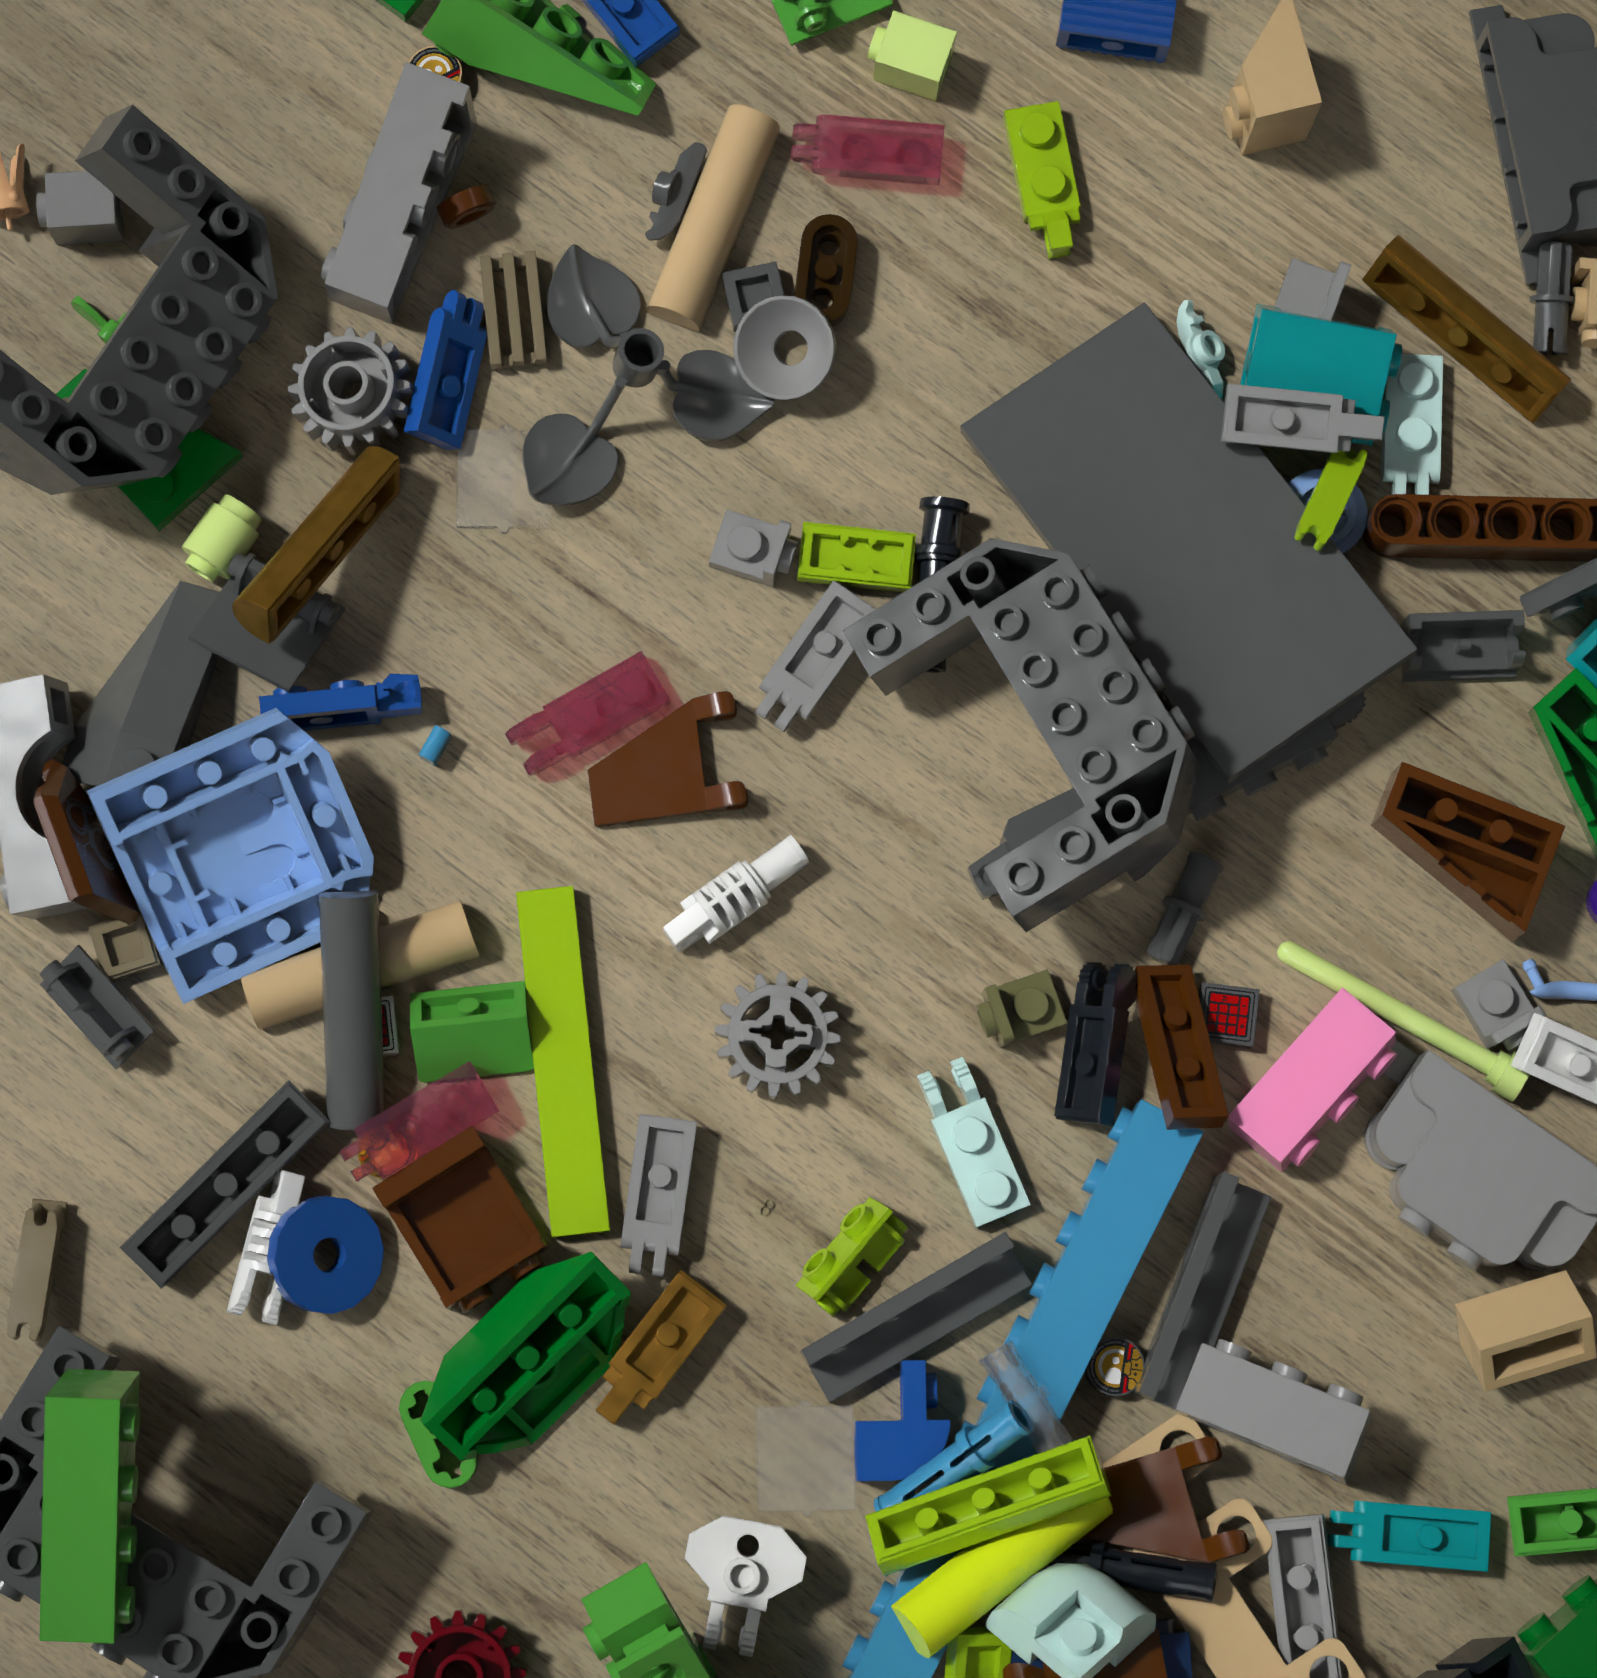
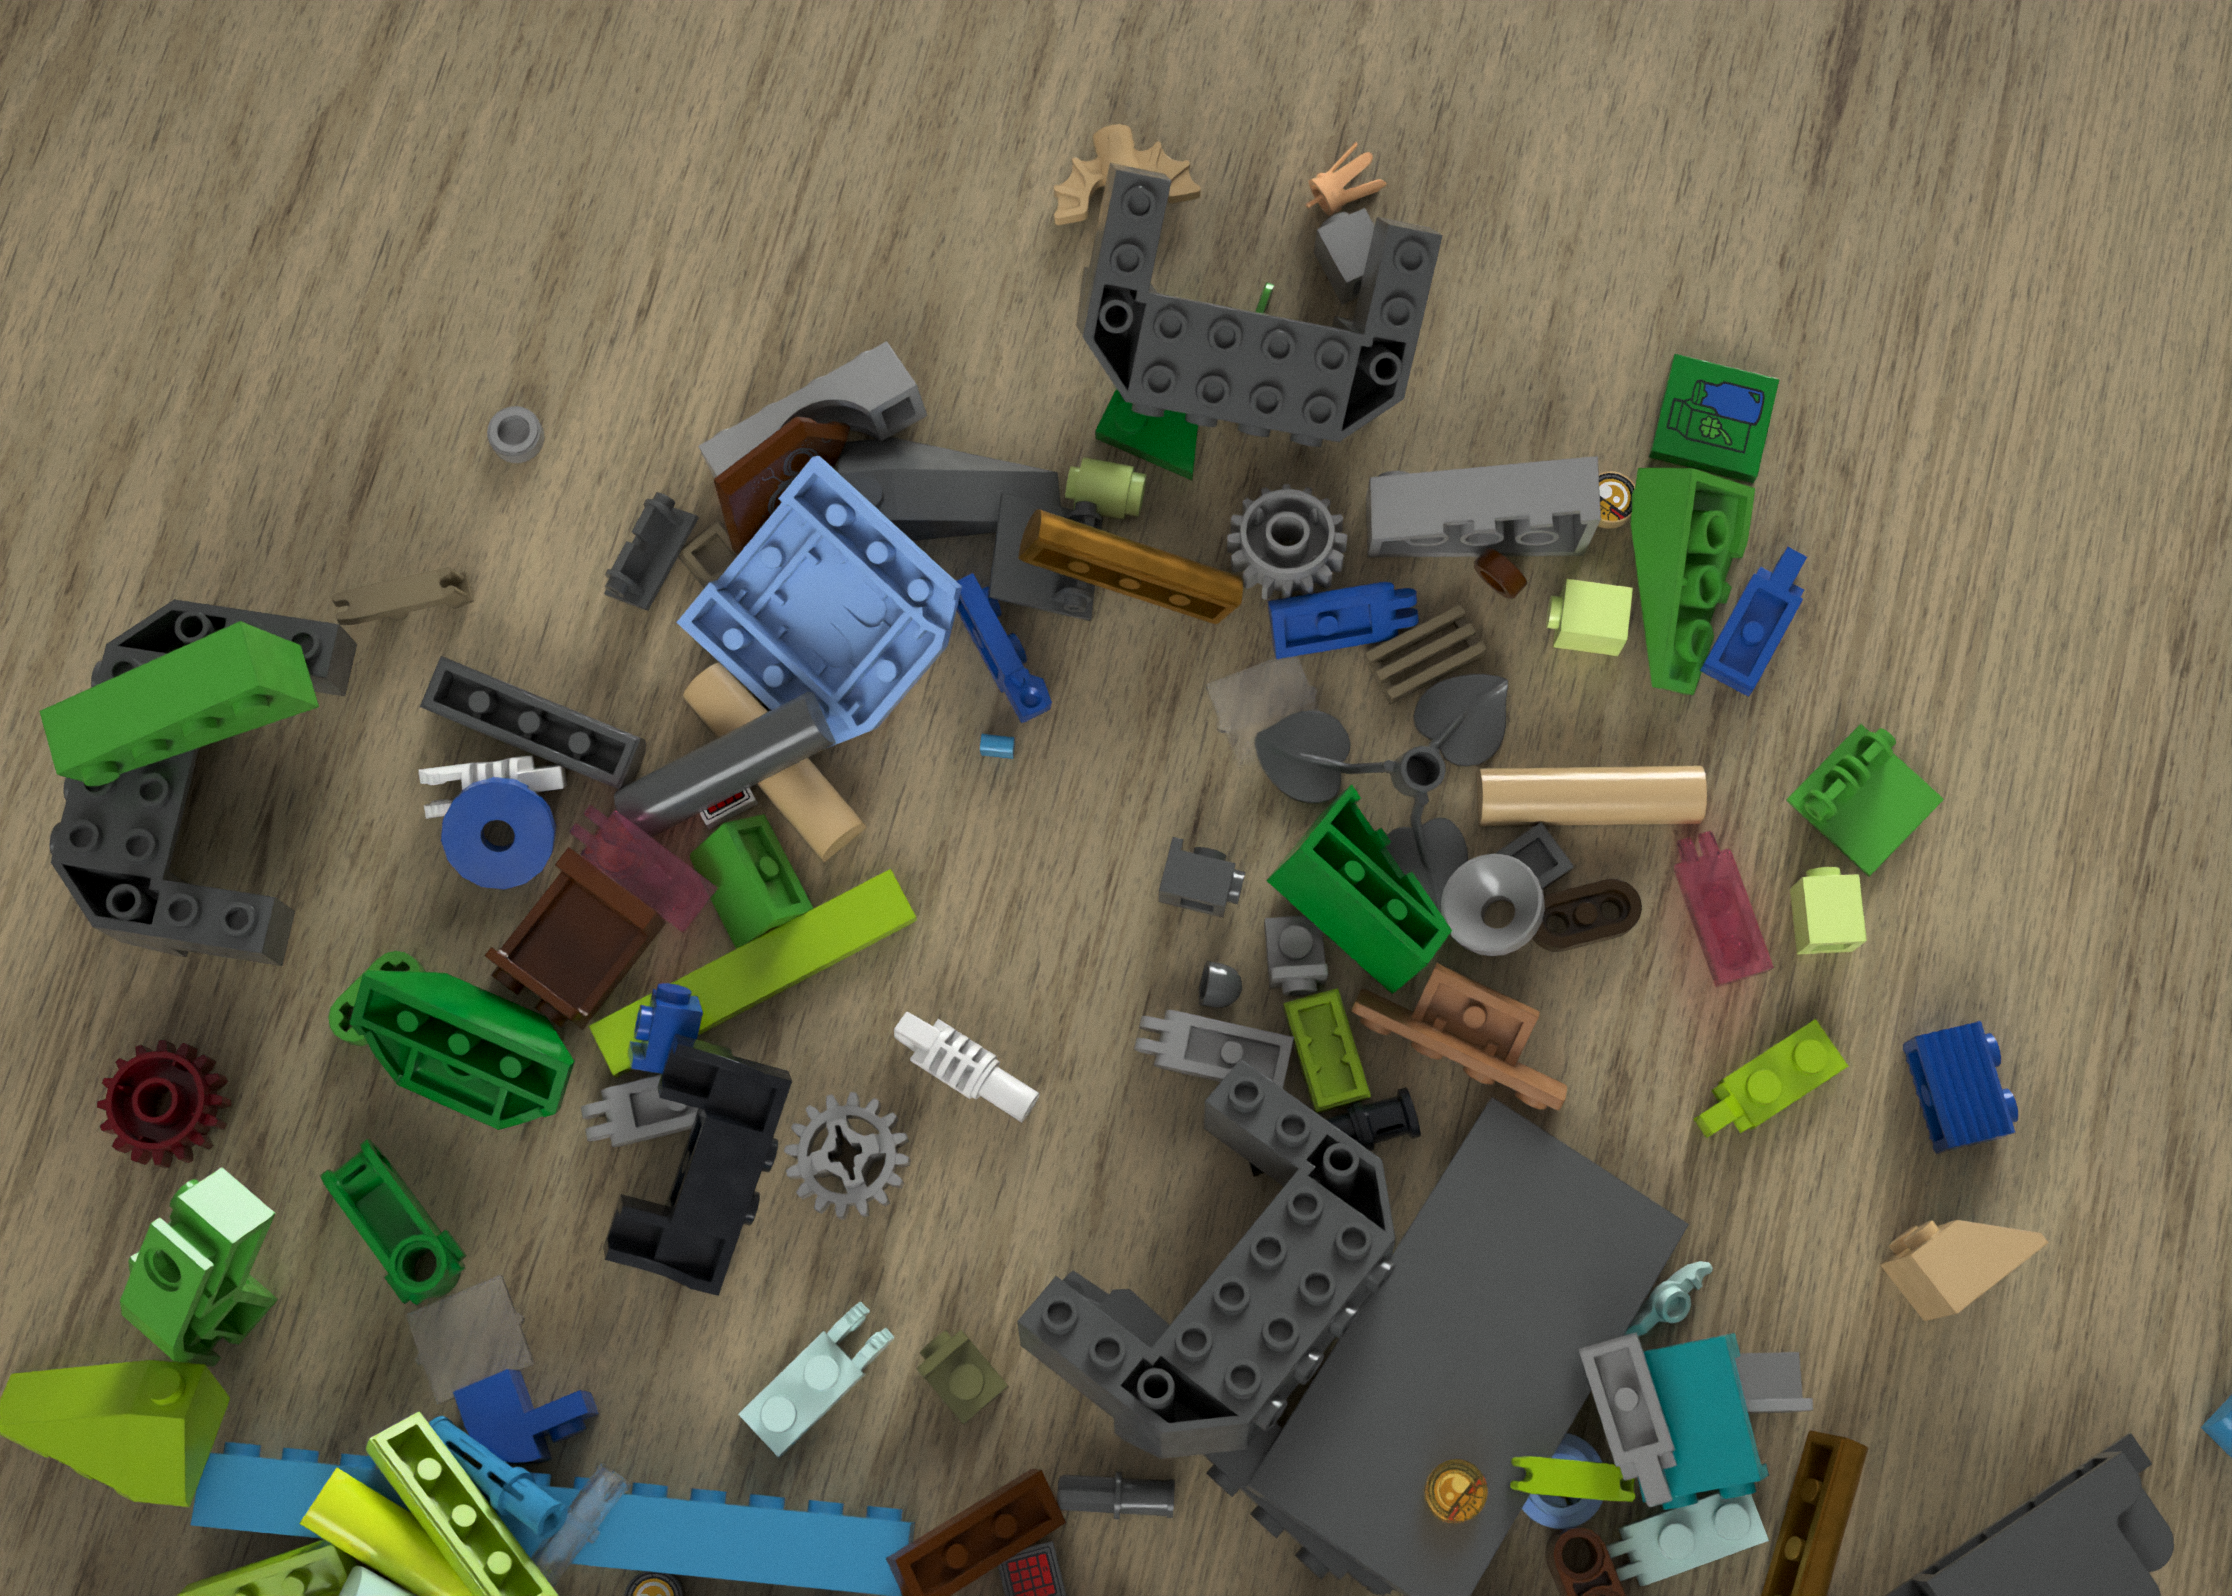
camera: 75 degrees right, 5 degrees down
(545, 142) = (1590, 617): none -> yellowish green brick
(593, 712) = (1084, 872): clear pink hinge -> none
(595, 1157) = (669, 1013): none -> blue brick
(647, 606) = (1200, 880): none -> dark grey brick
(659, 1345) = (523, 1162): pearl gold hinge -> none
(663, 770) = (1056, 955): reddish brown flag -> none
(668, 1490) = (394, 1224): none -> green piece
(674, 190) = (1598, 747): dark grey piece -> none
(726, 463) = (1360, 895): none -> green wedge
(742, 1578) = (333, 1320): white hinge -> none
(748, 1159) = (718, 1171): none -> black bracket
(754, 631) = (1219, 985): none -> dark grey hinge
(831, 1273) = (644, 1297): lime hinge -> none
(887, 419) = (1469, 1027): none -> medium nougat bracket
(916, 1317) = (633, 1390): dark grey fence -> none
(1095, 1044) = (952, 1459): black hinge -> none
(1304, 599) = (1455, 1491): none -> clear yellow tile

